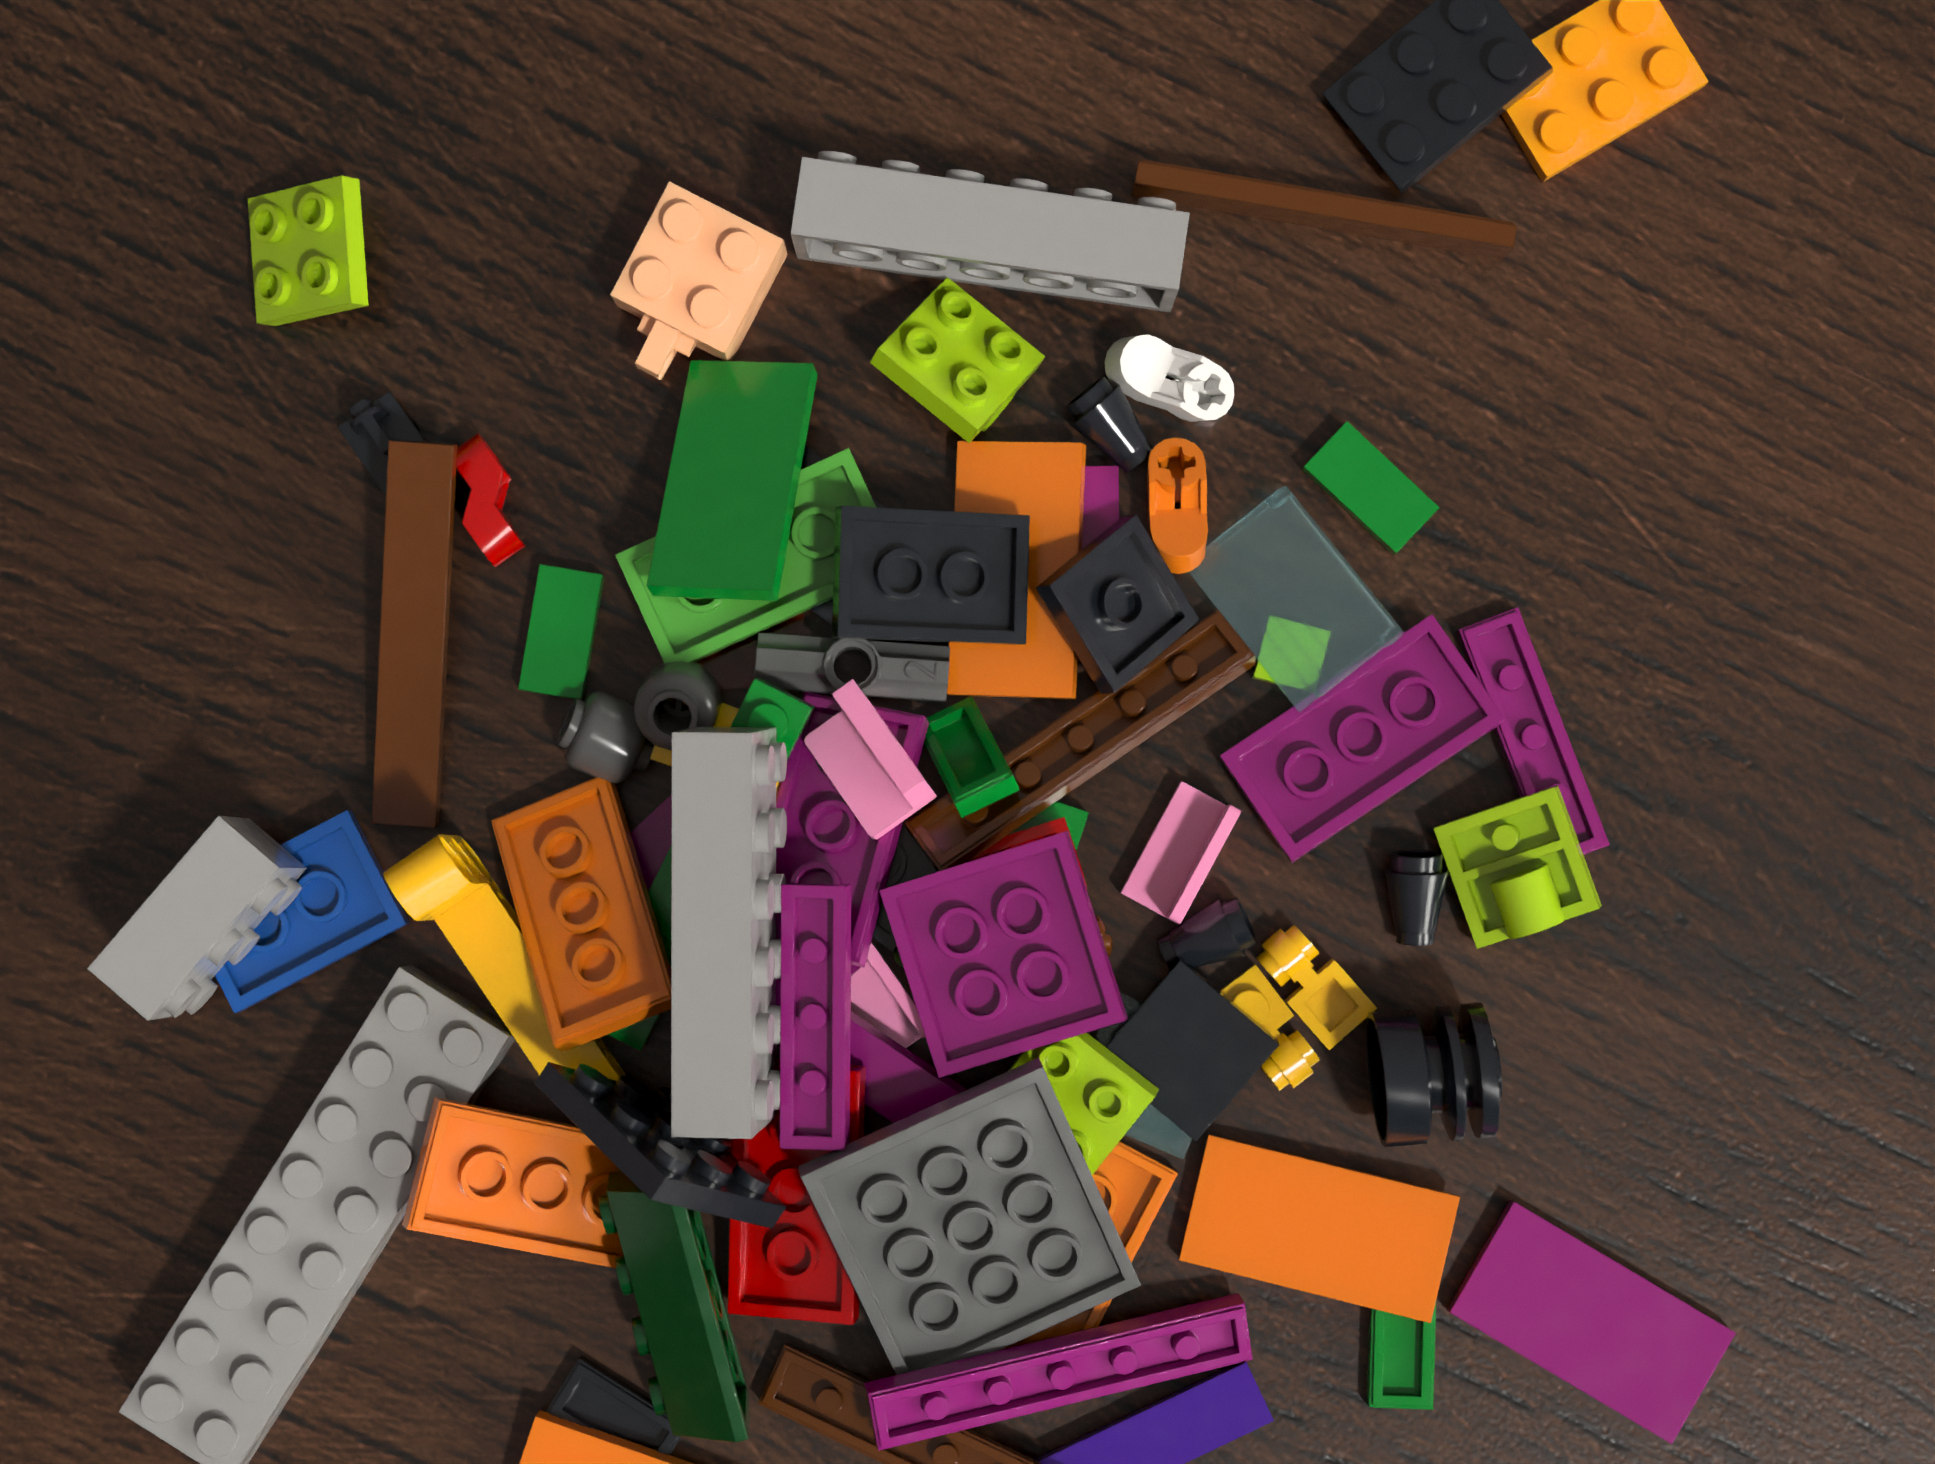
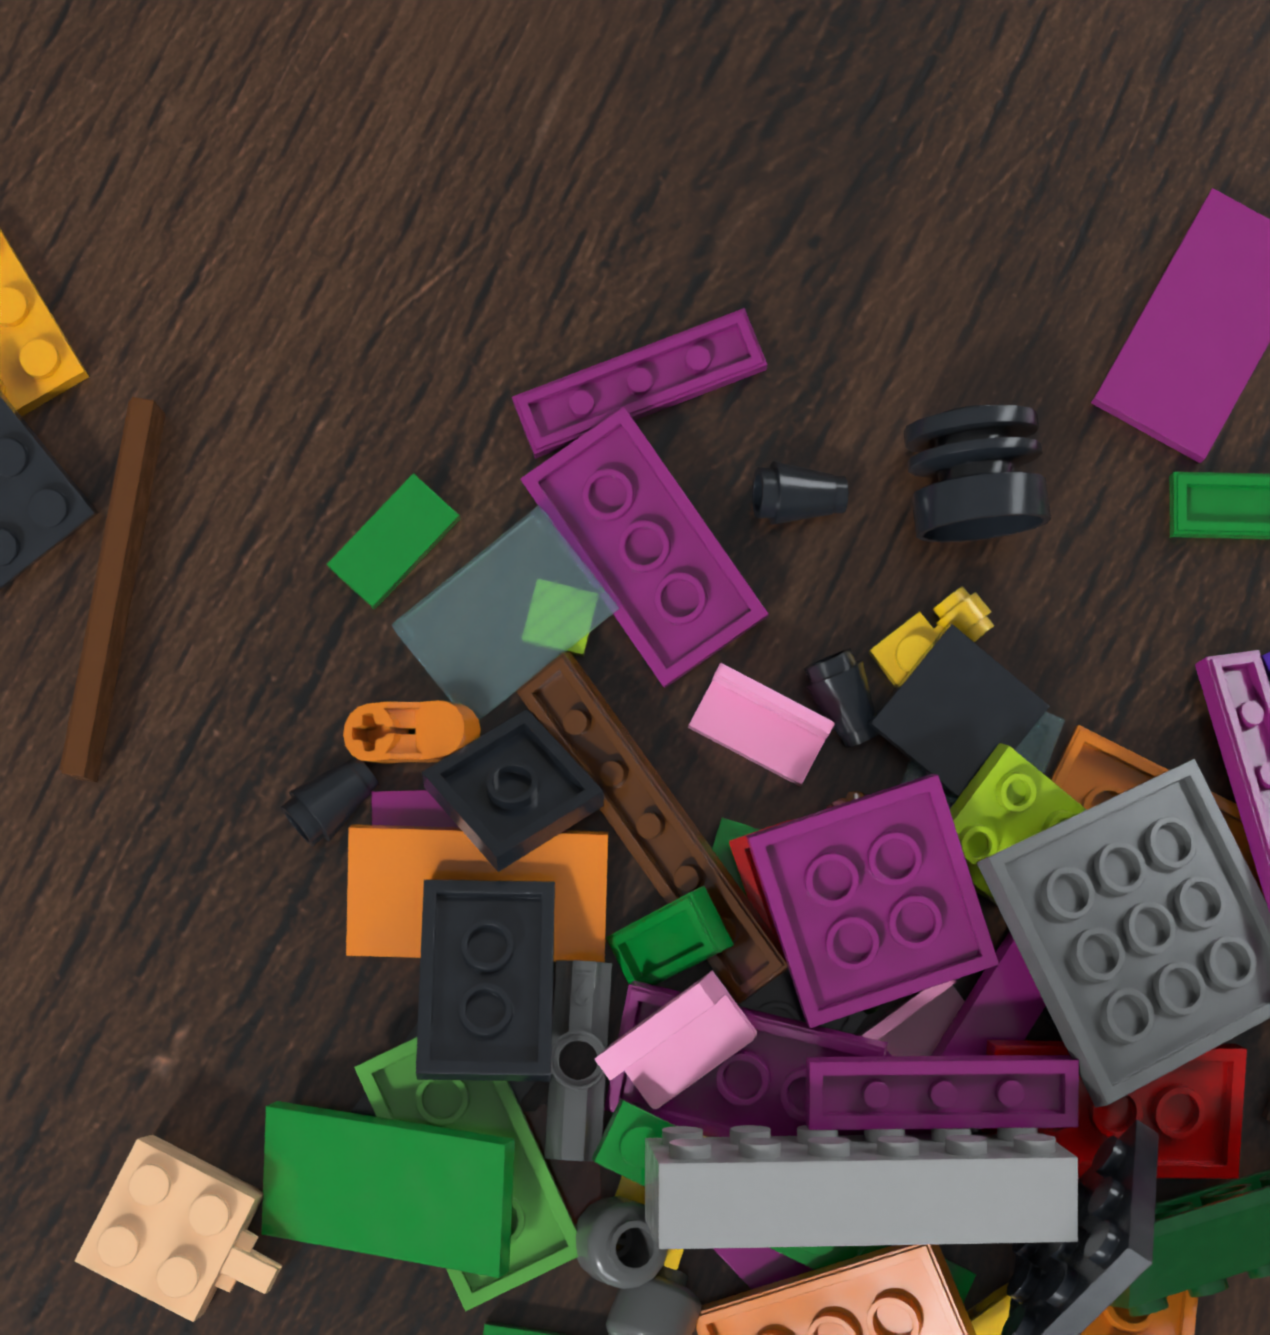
camera: 90 degrees left, 5 degrees down
(957, 360) = (263, 956): lime plate -> none
(989, 232) = (131, 926): light grey brick -> none
(1198, 387) = (290, 711): white piece -> none
(1319, 1228) = (1127, 586): orange tile -> none
(1327, 998) = (902, 580): yellow plate -> none
(1517, 867) = (769, 394): lime plate -> none

